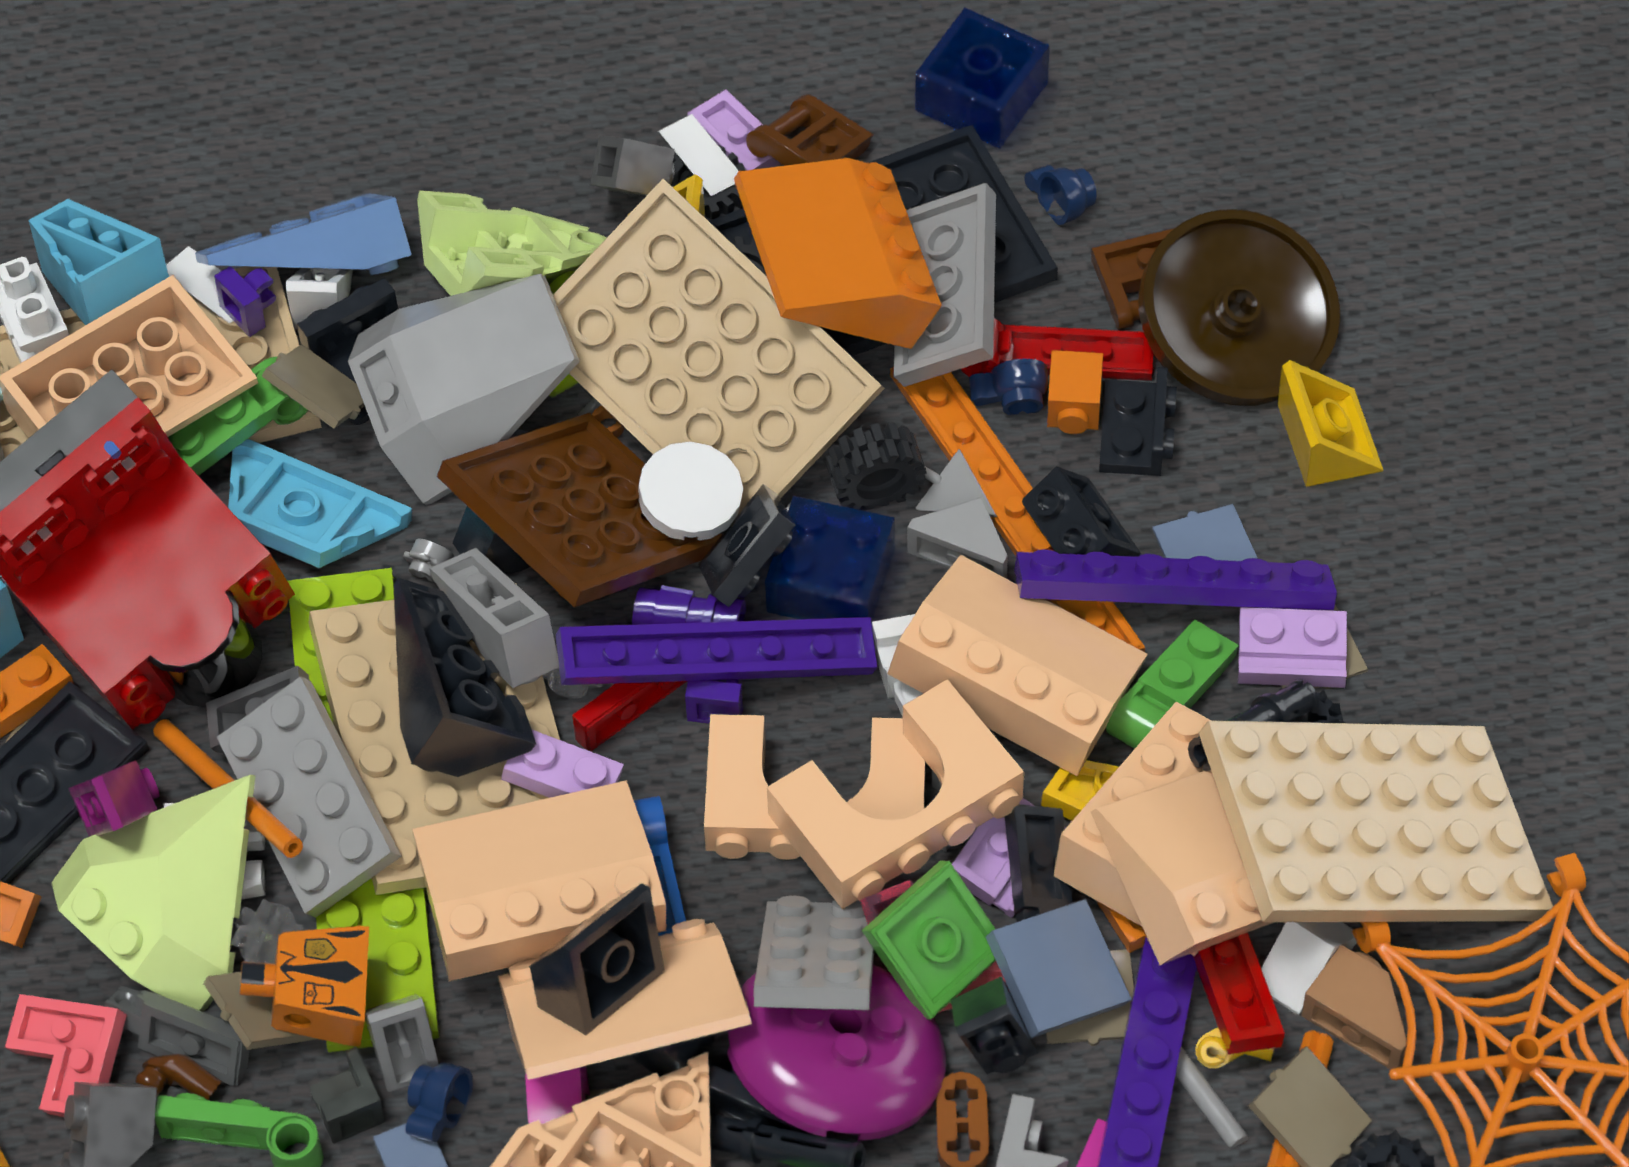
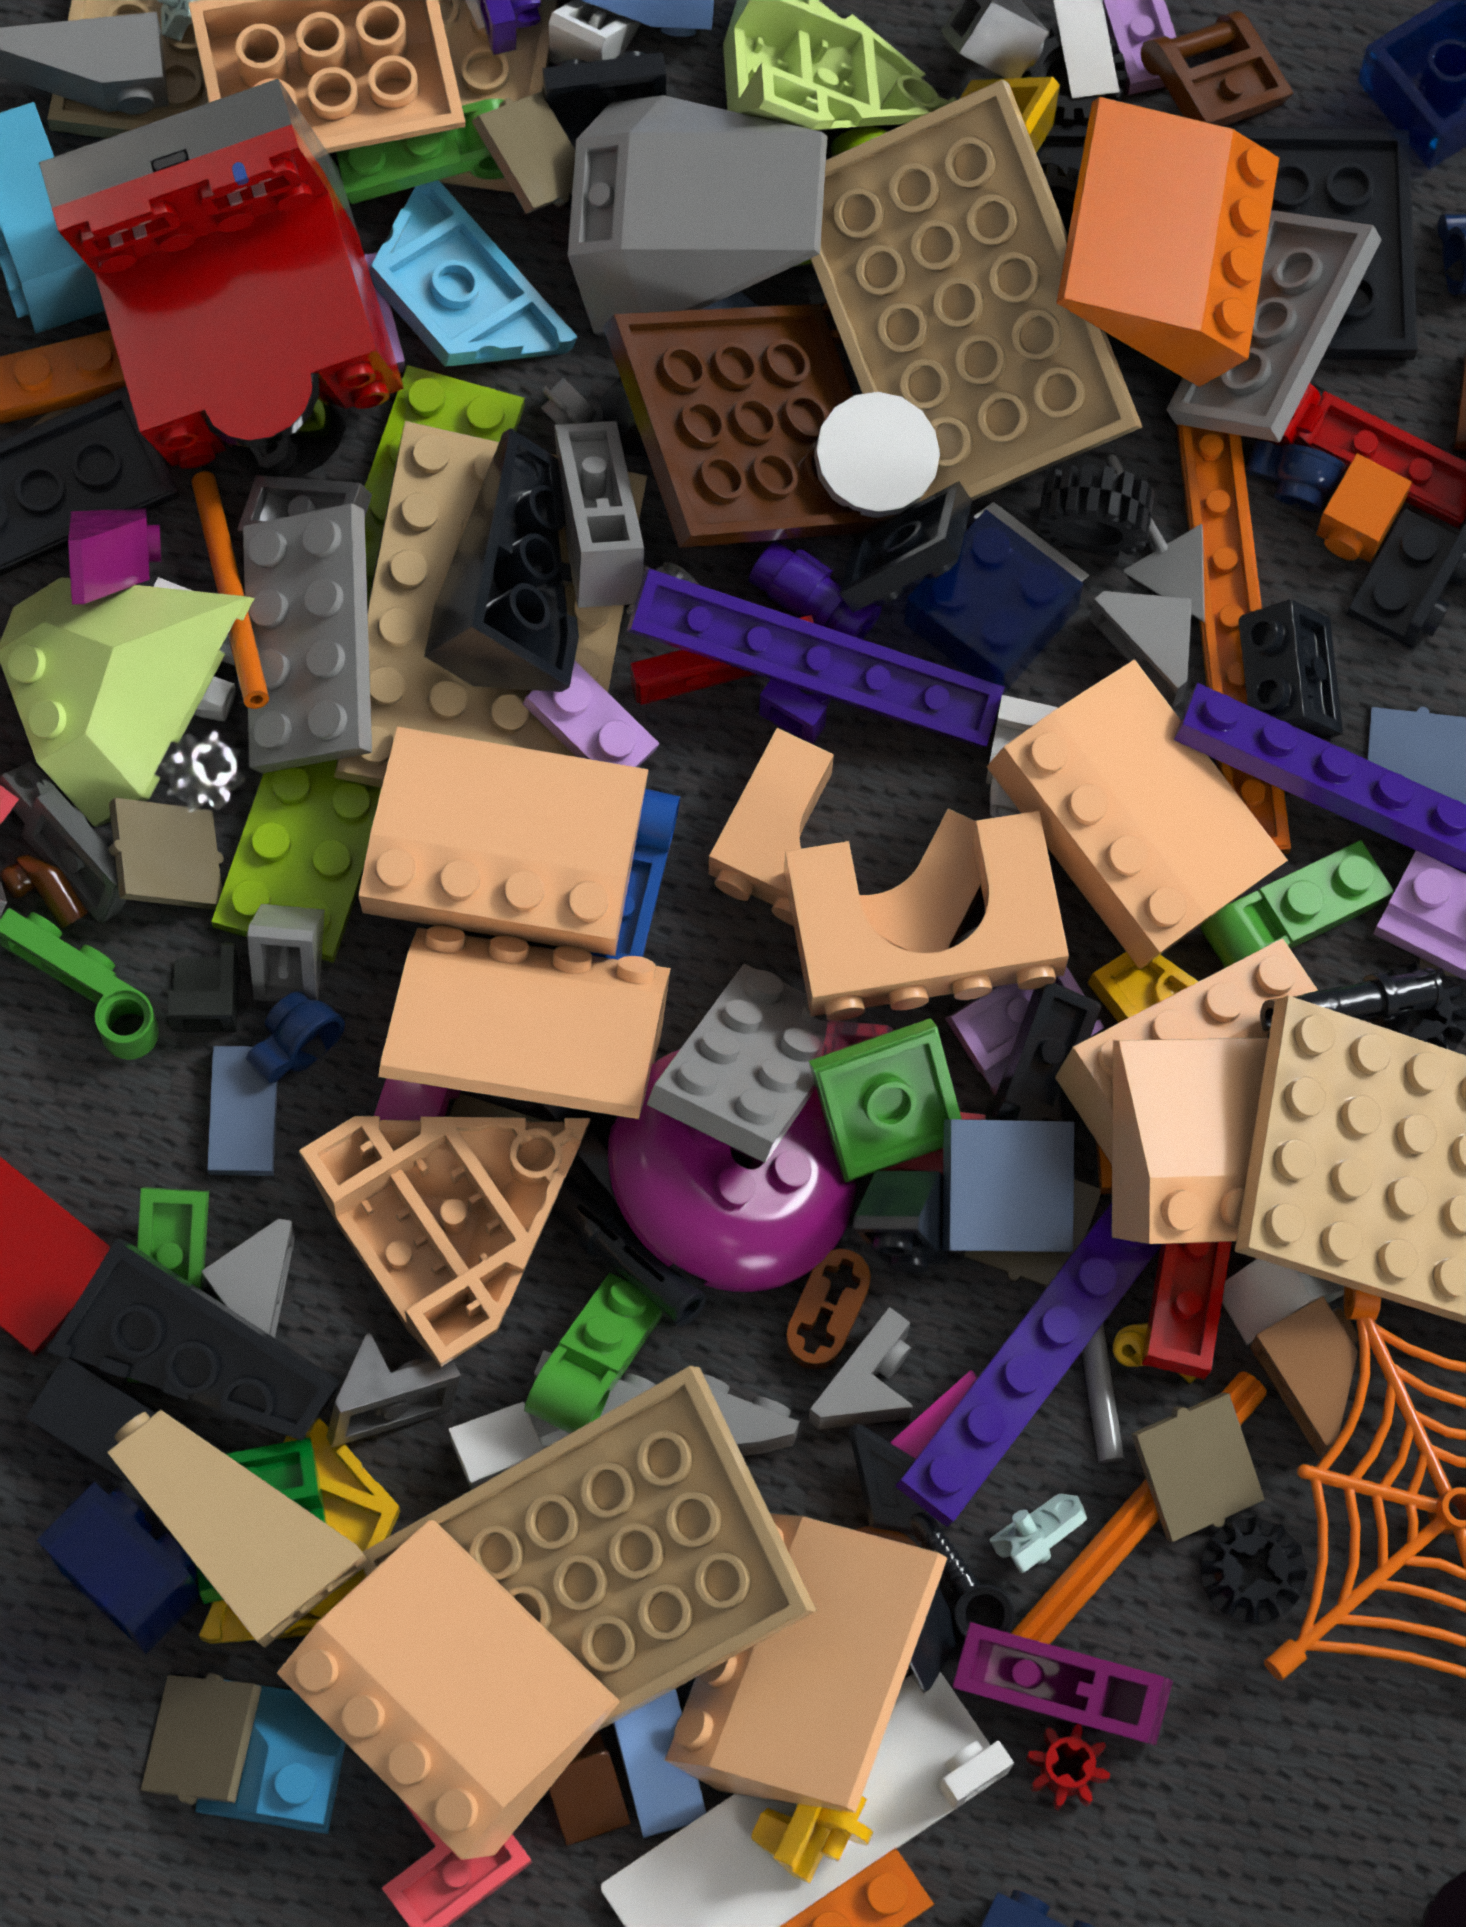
camera: 20 degrees right, 15 degrees up
(315, 983) = (220, 855): orange torso -> none
(600, 962) = (509, 981): black slope -> none

